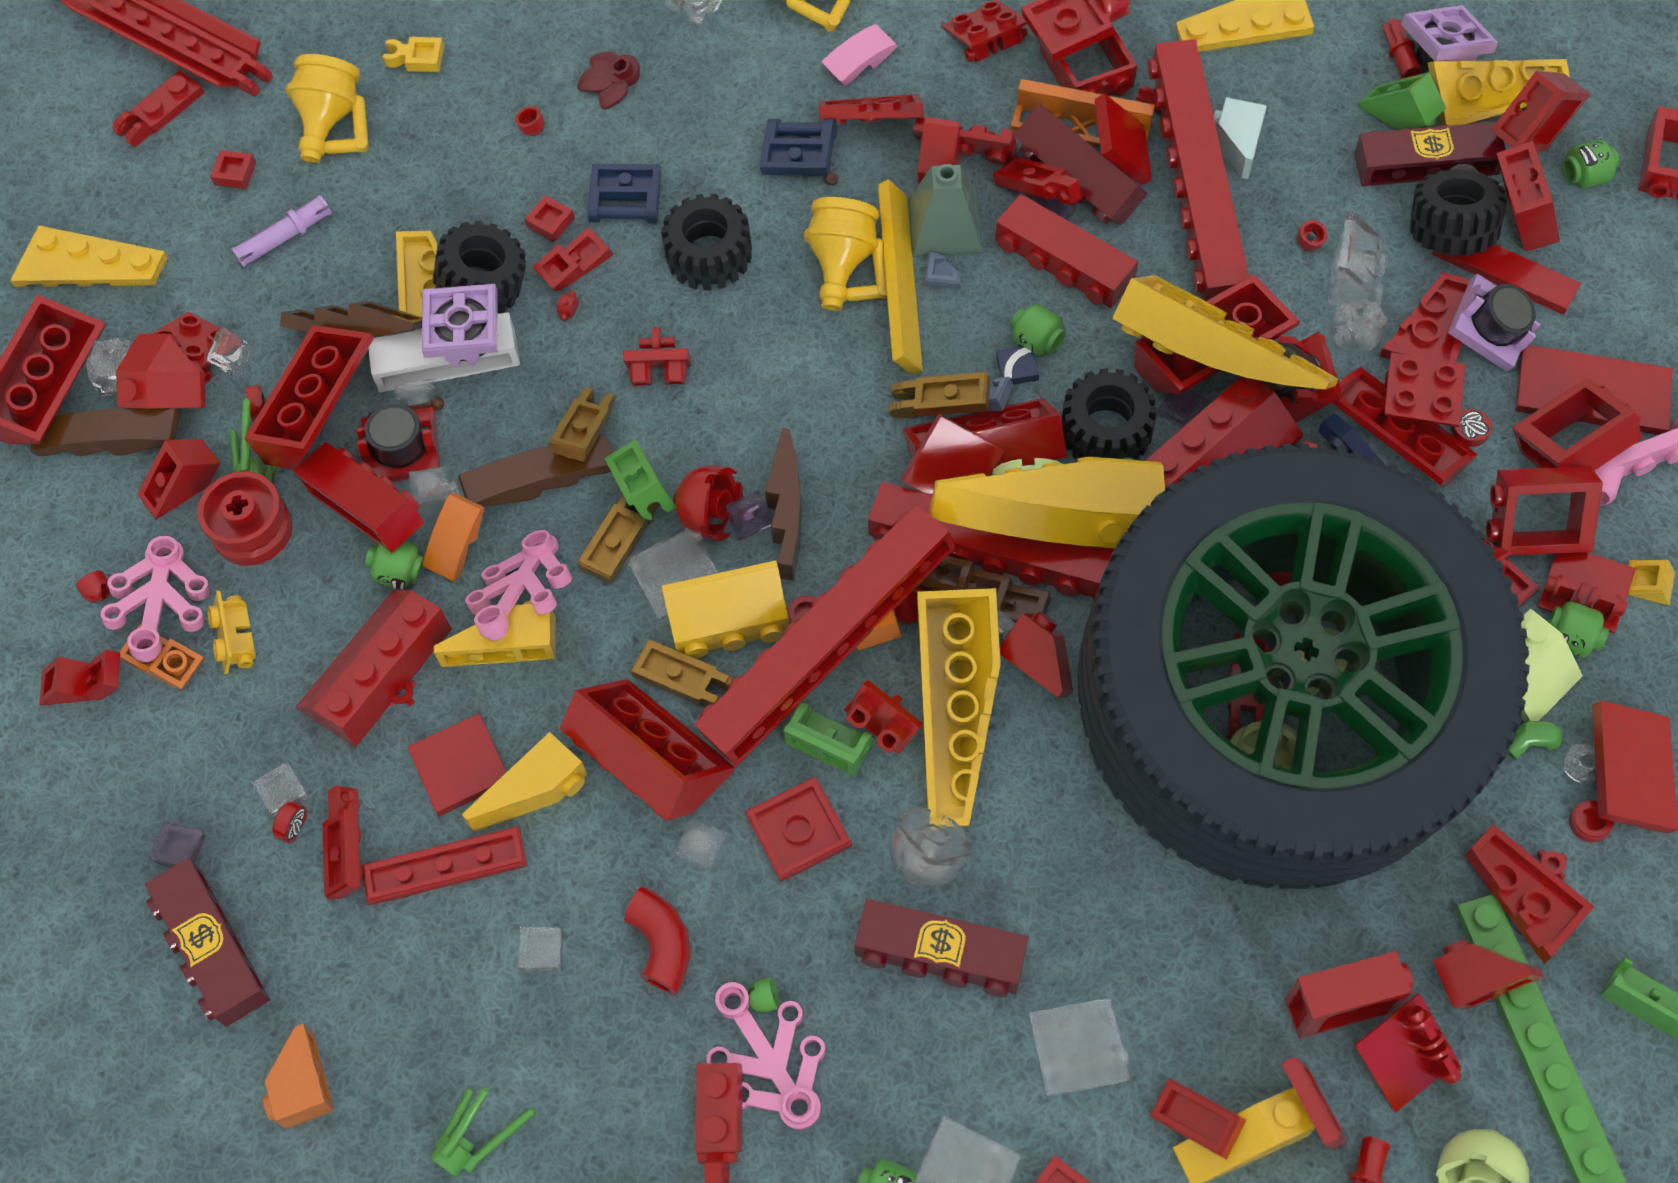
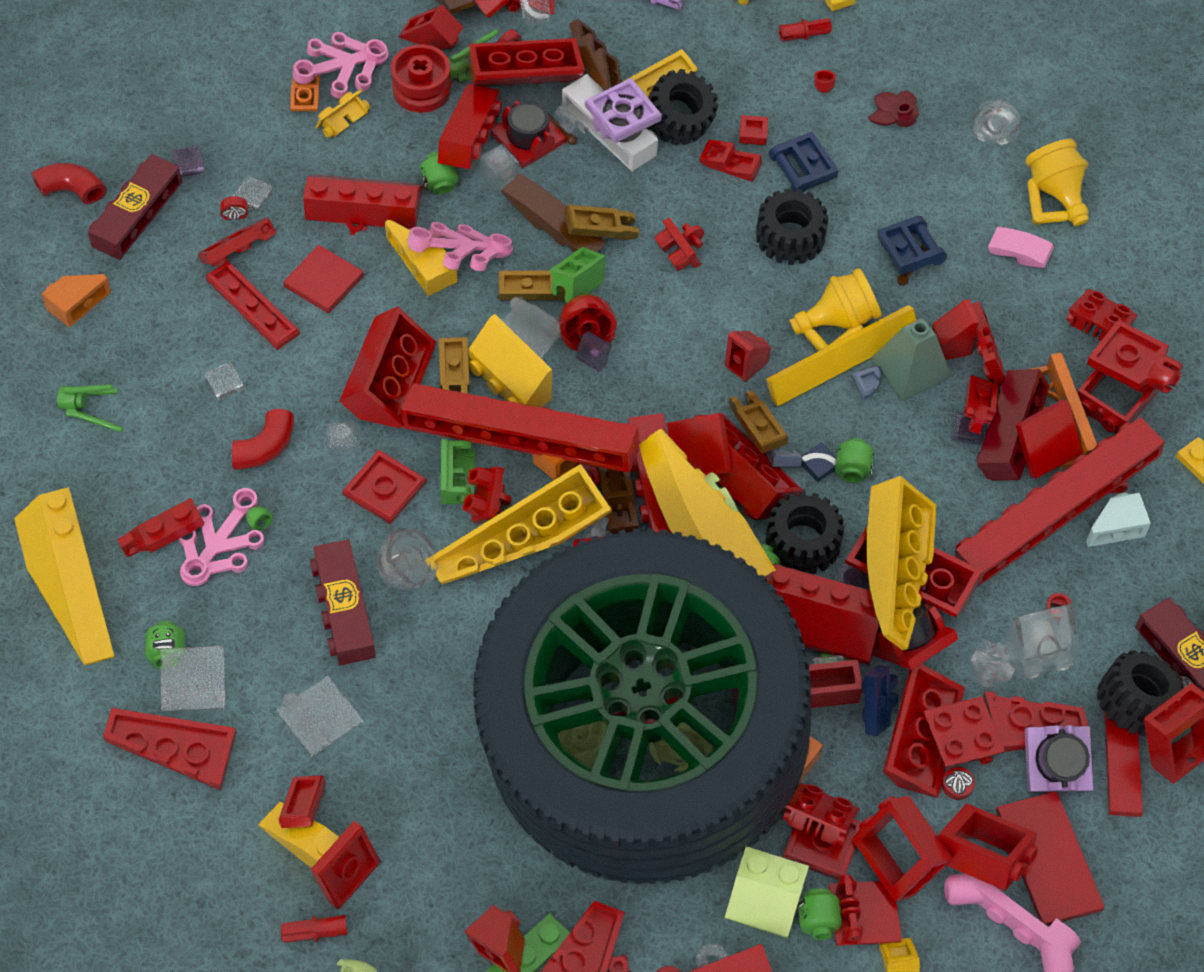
camera: 55 degrees right, 5 degrees down
(79, 681) = (266, 55): red slope -> none
(94, 586) = (331, 26): red hinge -> none
(104, 1006) = (71, 178): none -> red cylinder
(447, 107) = (804, 29): none -> red axle
(453, 532) = (475, 191): orange slope -> none
(531, 784) = (331, 322): yellow slope -> none
(567, 305) = (692, 174): red piece -> none
(785, 497) = (625, 364): reddish brown slope -> none
(849, 365) = (746, 354): none -> red slope
(872, 108) = (975, 275): red wing -> none
(1065, 251) = (933, 445): red brick -> none
(1348, 994) = (435, 856): red window -> none
(1408, 1053) = (417, 916): red hinge -> none
(1535, 734) = (715, 916): bright green arm -> none

